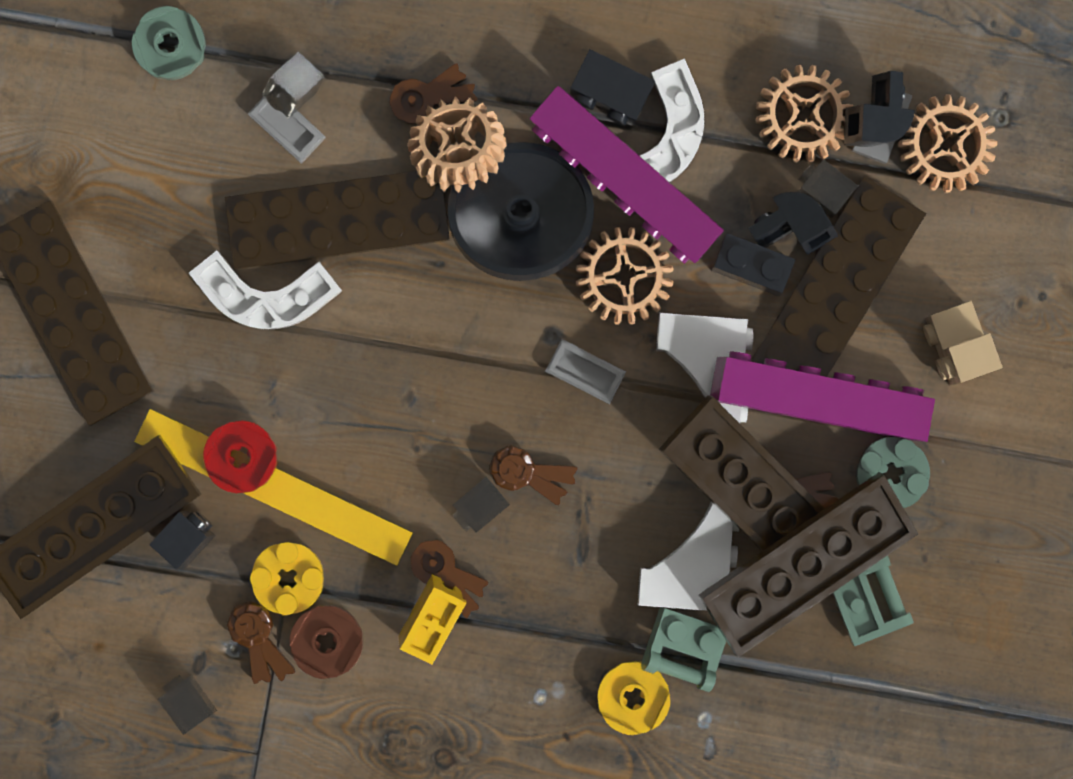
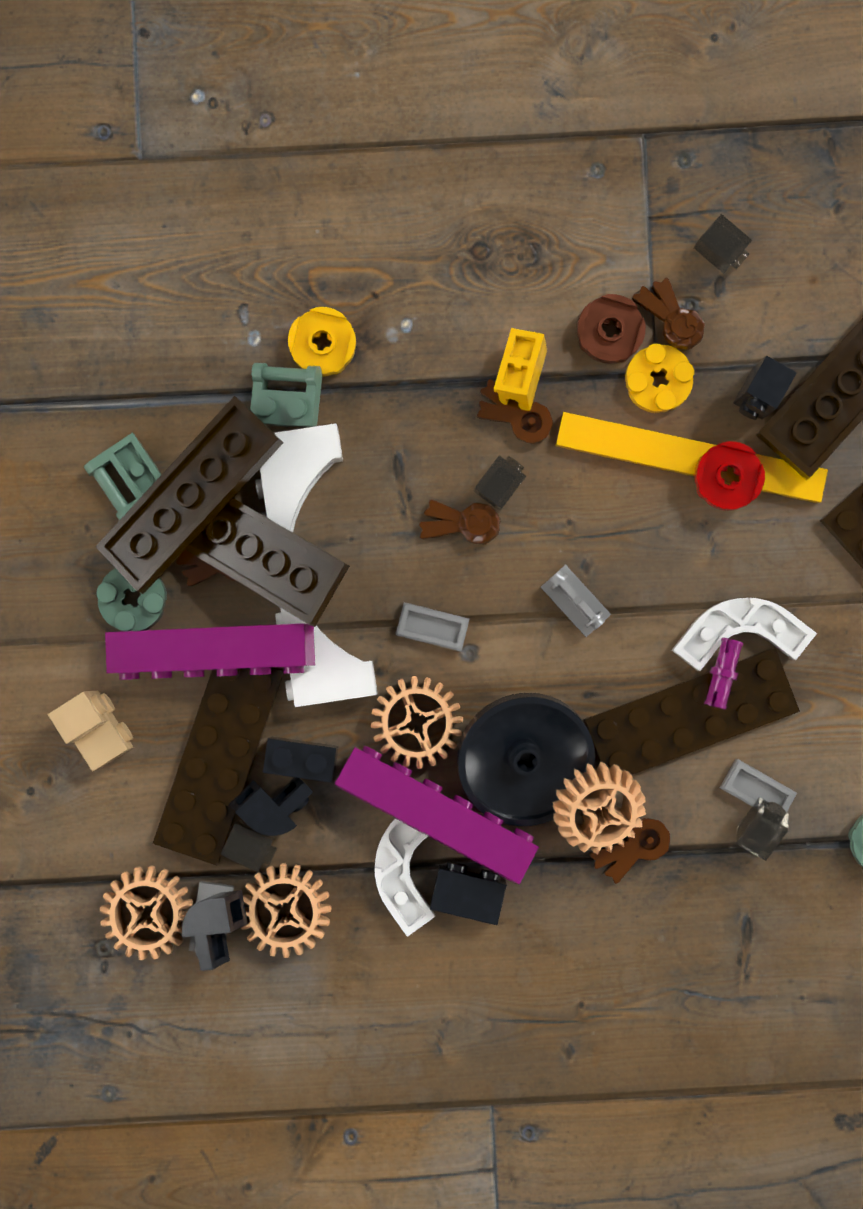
camera: 165 degrees right, 0 degrees up
(295, 253) = (724, 673): none -> magenta pin
(429, 364) = (575, 601): none -> light grey hinge

